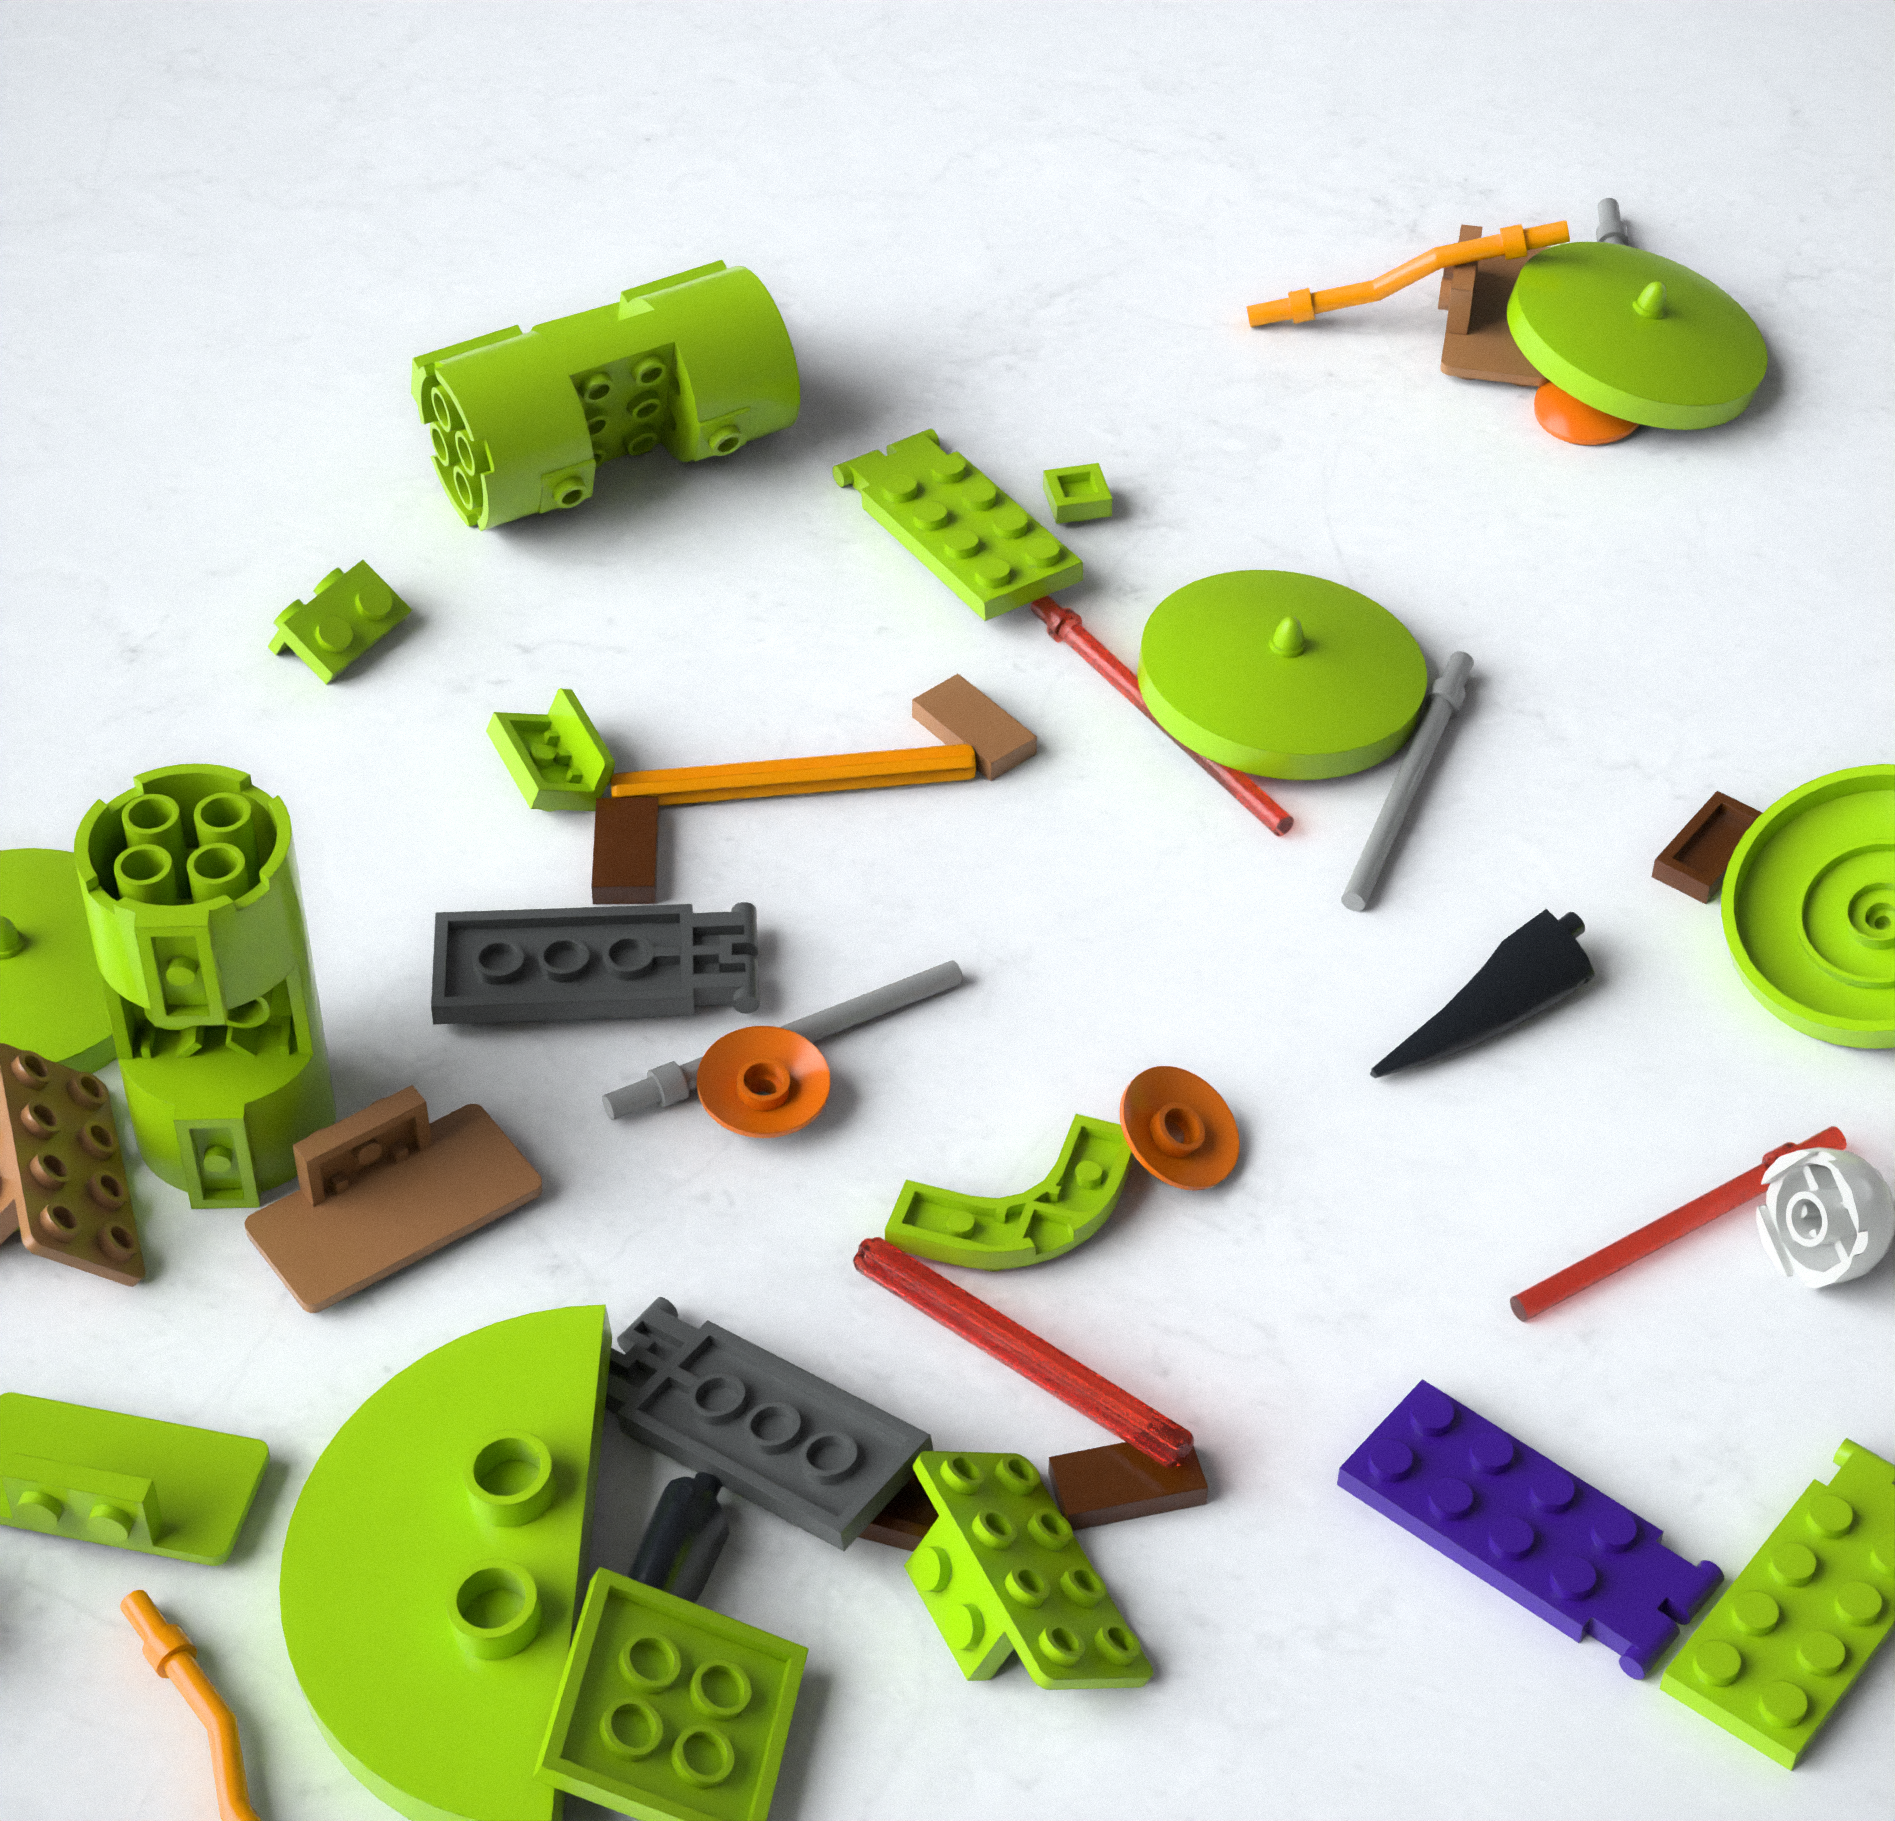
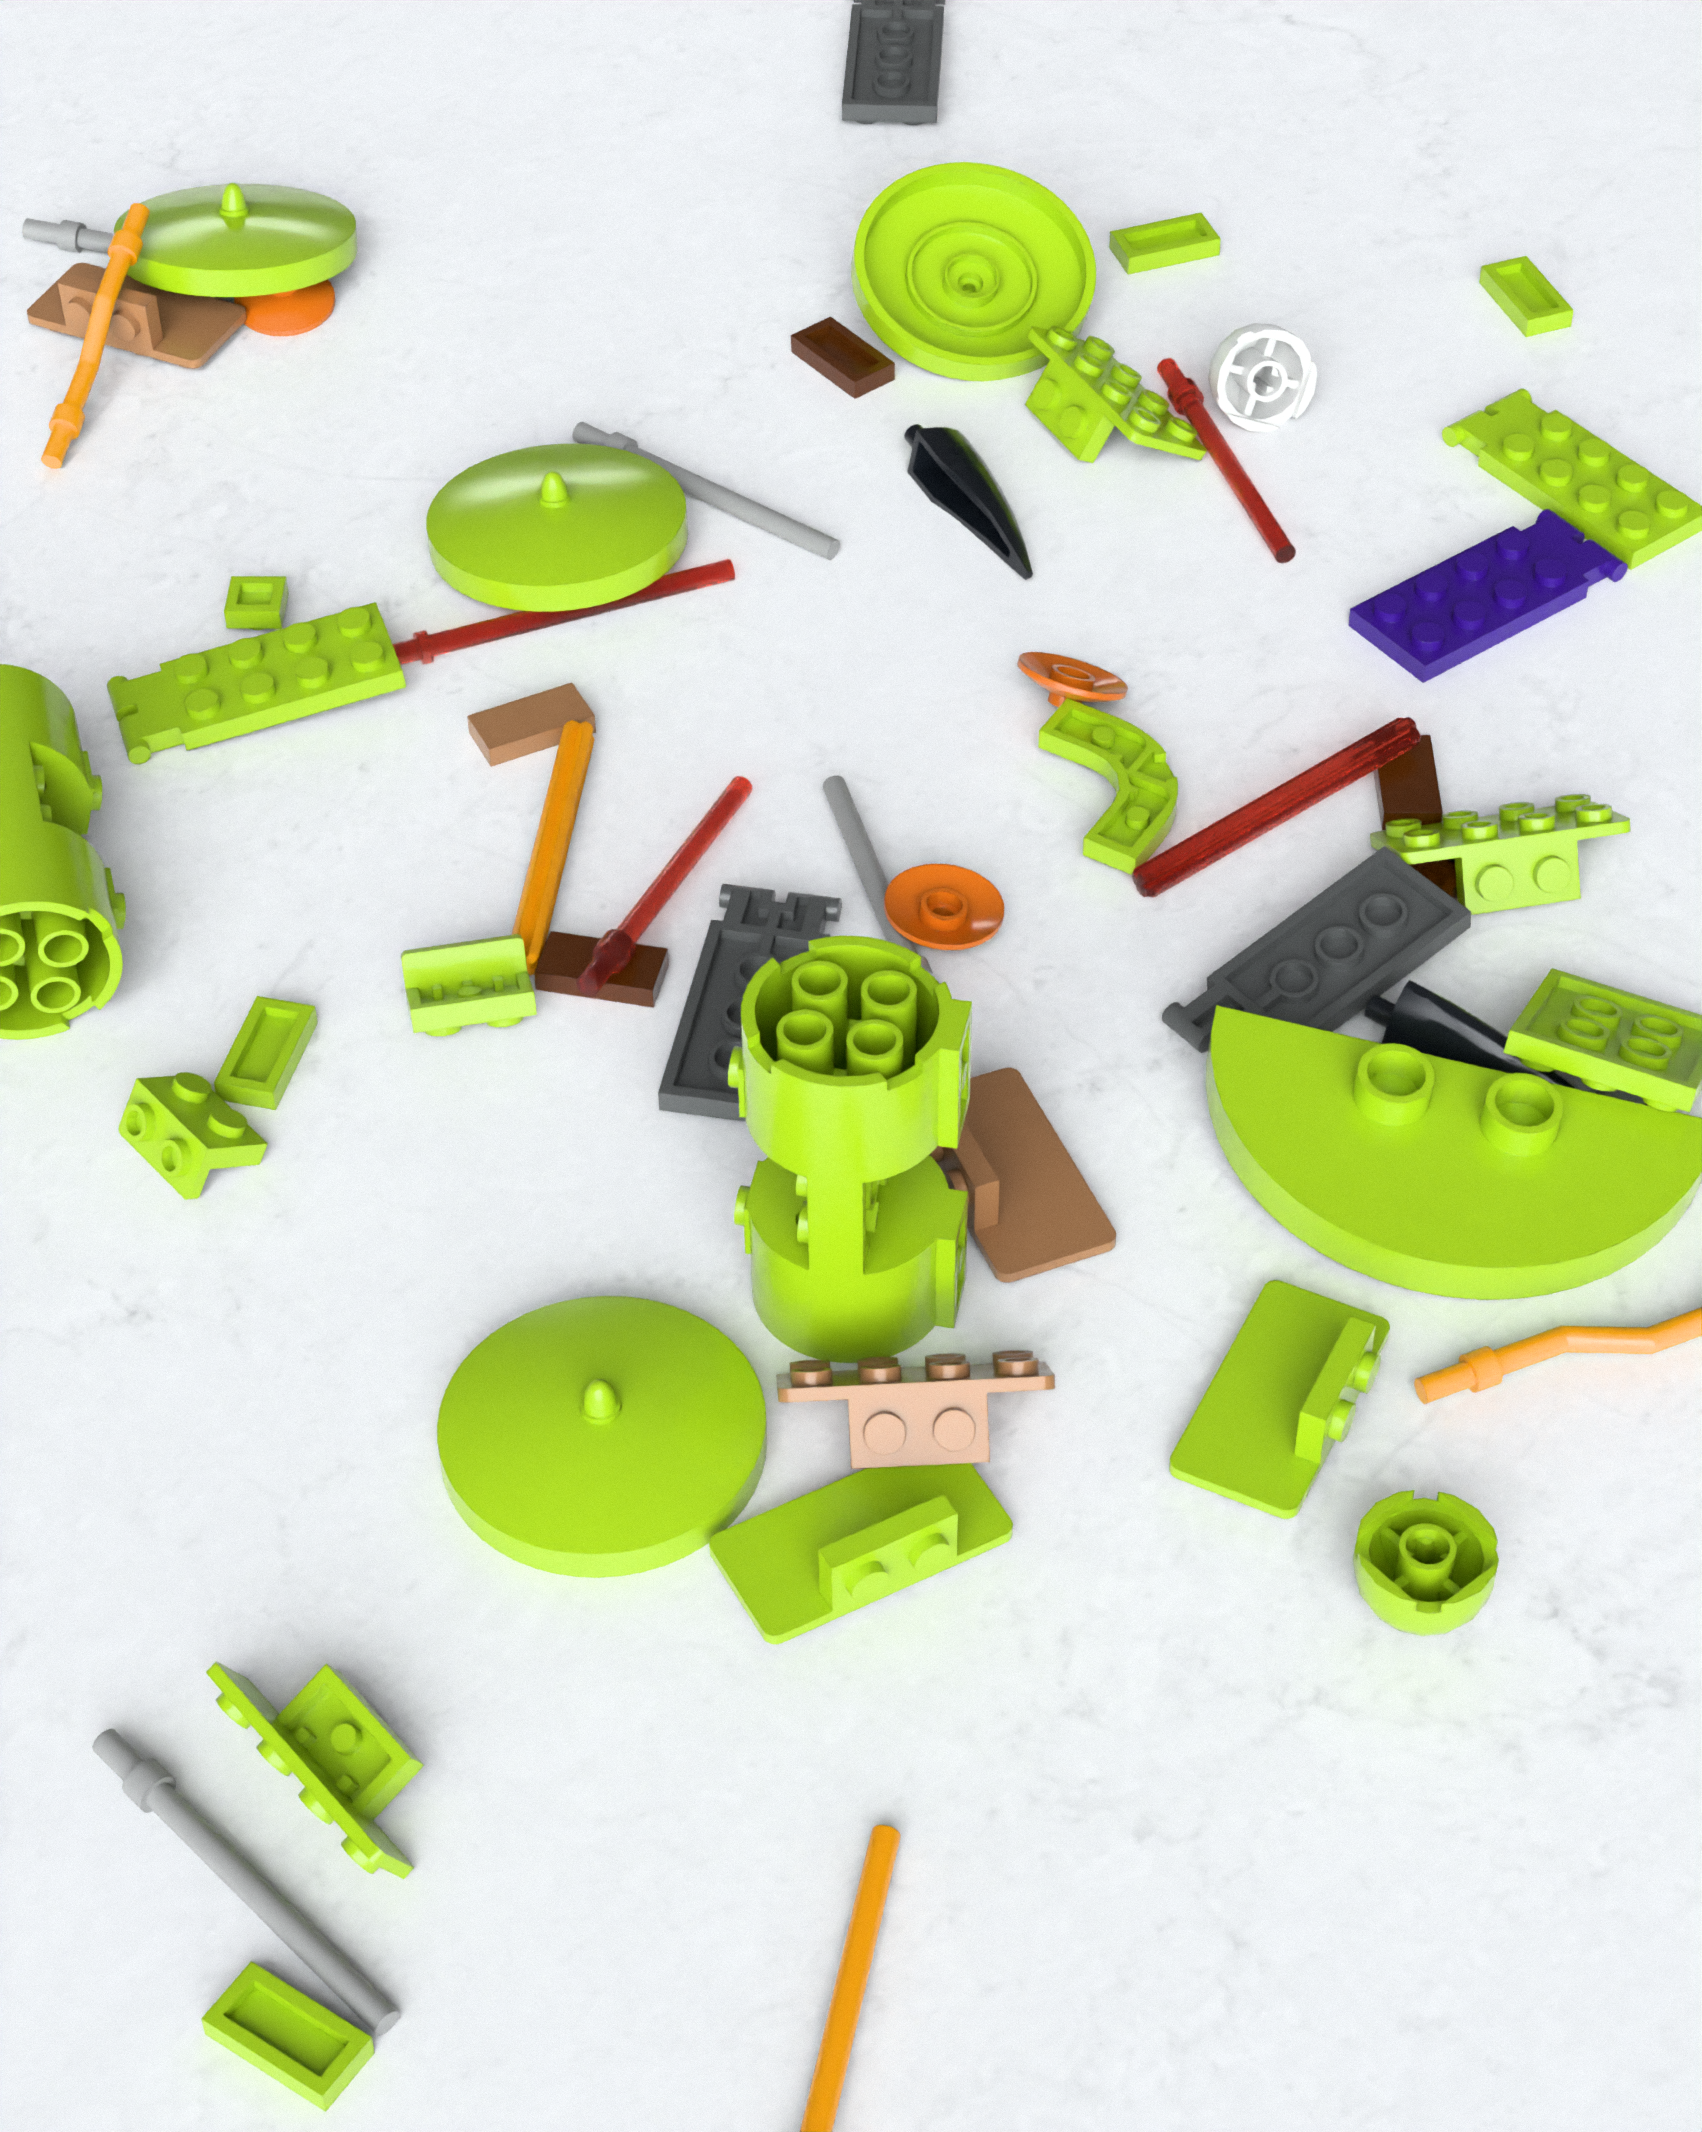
camera: 75 degrees left, 0 degrees up
(458, 650) = (266, 1053): none -> lime tile
(625, 840) = (618, 944): none -> clear red bar
(1730, 1086) = (1091, 392): none -> lime bracket

